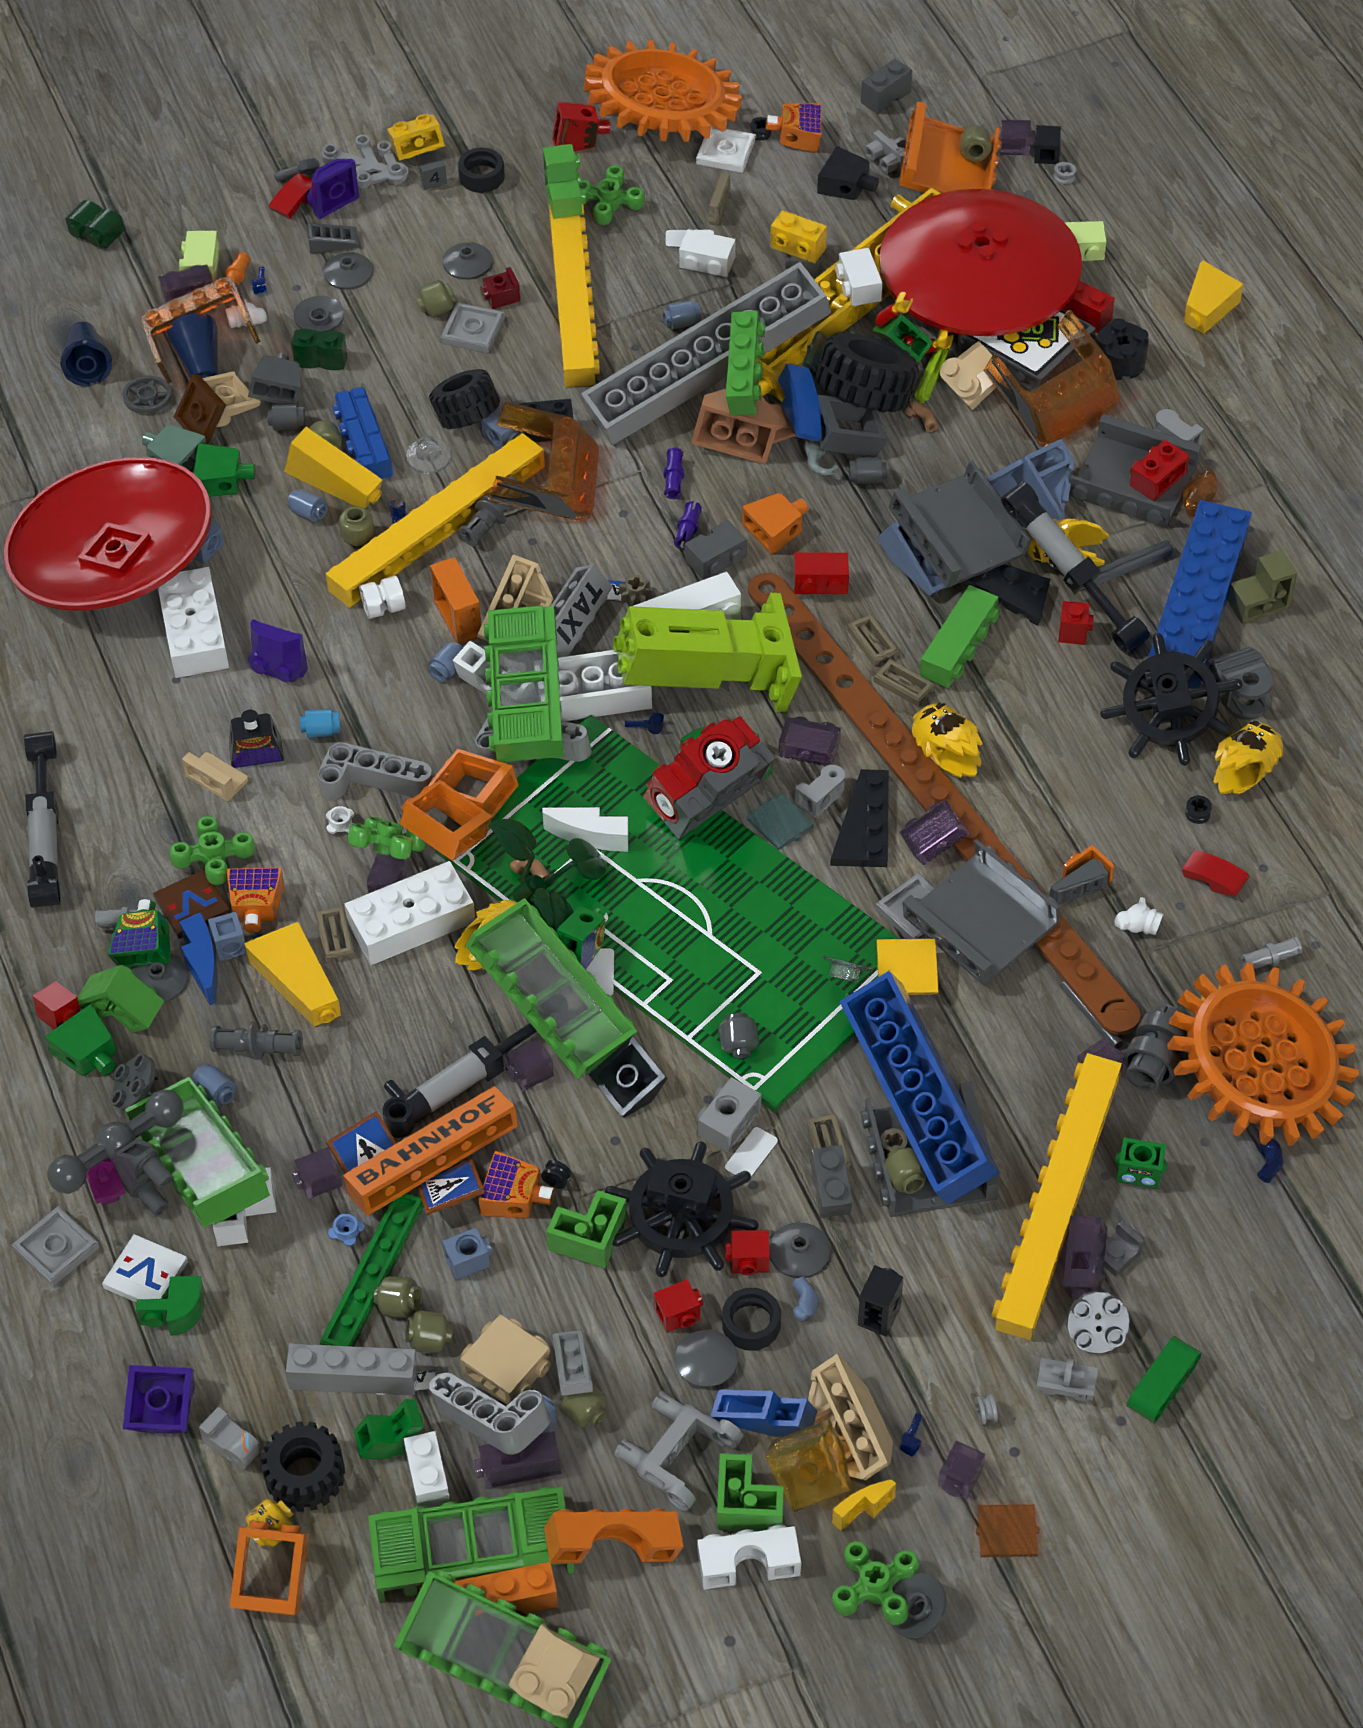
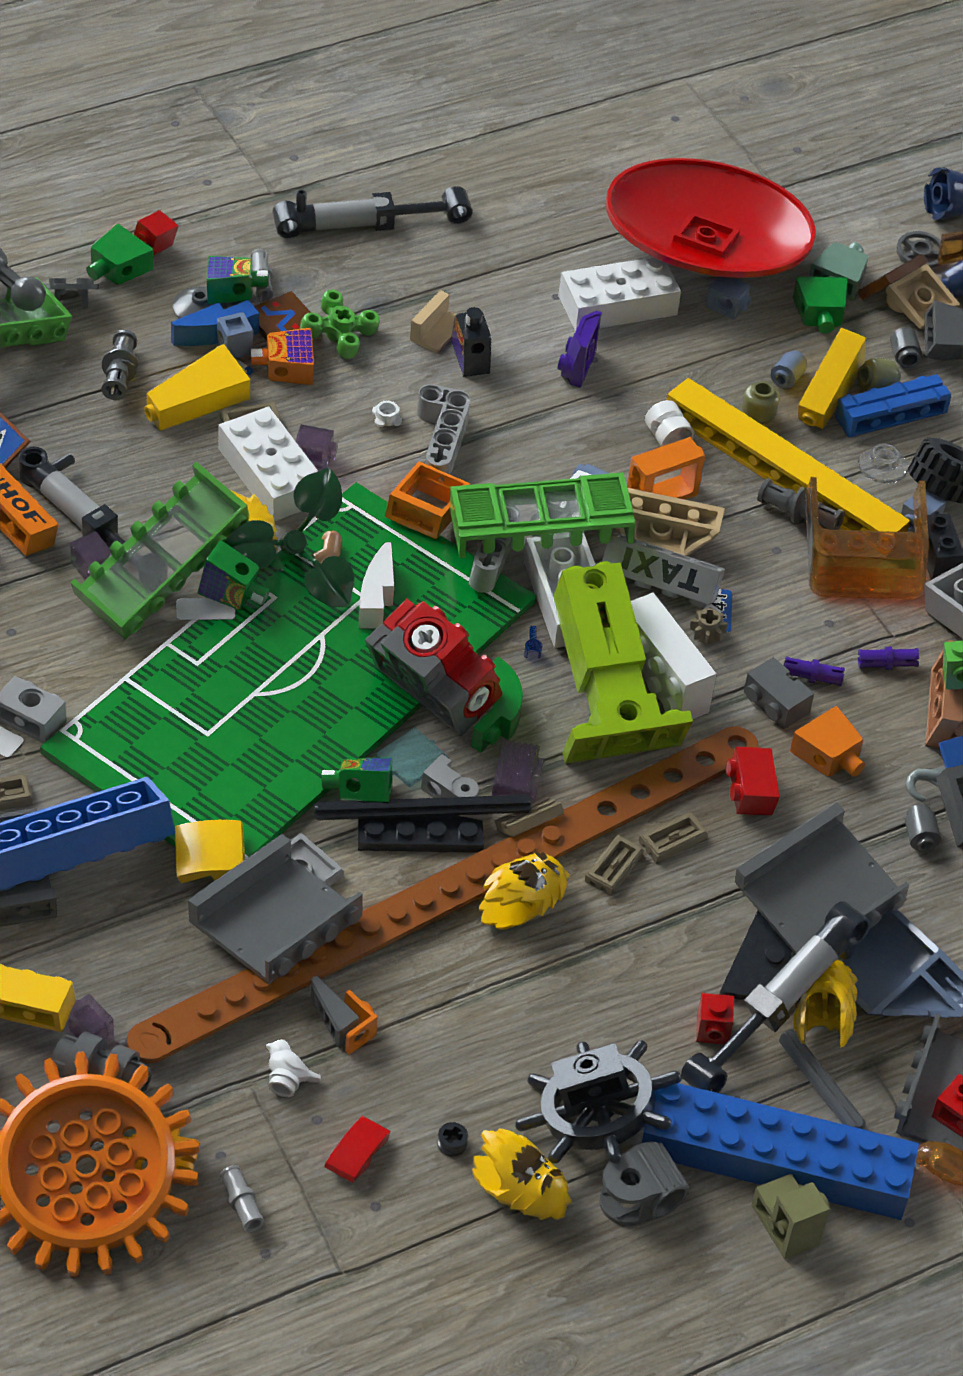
camera: 80 degrees right, 5 degrees down
(122, 996) = (159, 270): bright green brick -> none
(215, 1083) = (73, 342): sand blue brick -> none
(320, 723) = (503, 392): dark azure brick -> none
(386, 838) = (354, 437): bright green gear -> none
(397, 512) = (797, 438): clear blue hand -> none
(472, 818) = (359, 492): orange window -> none
(629, 1077) = (75, 632): black slope -> none
(738, 1035) = (117, 707): dark grey head -> none
(826, 845) = (374, 779): none -> green torso
(845, 720) = (541, 811): none -> dark tan tile
(845, 970) = (204, 792): clear piece -> none
(855, 807) = (422, 807): none -> black axle
(934, 831) = (391, 875): clear purple brick -> none
(959, 636) = (678, 906): bright green brick -> none

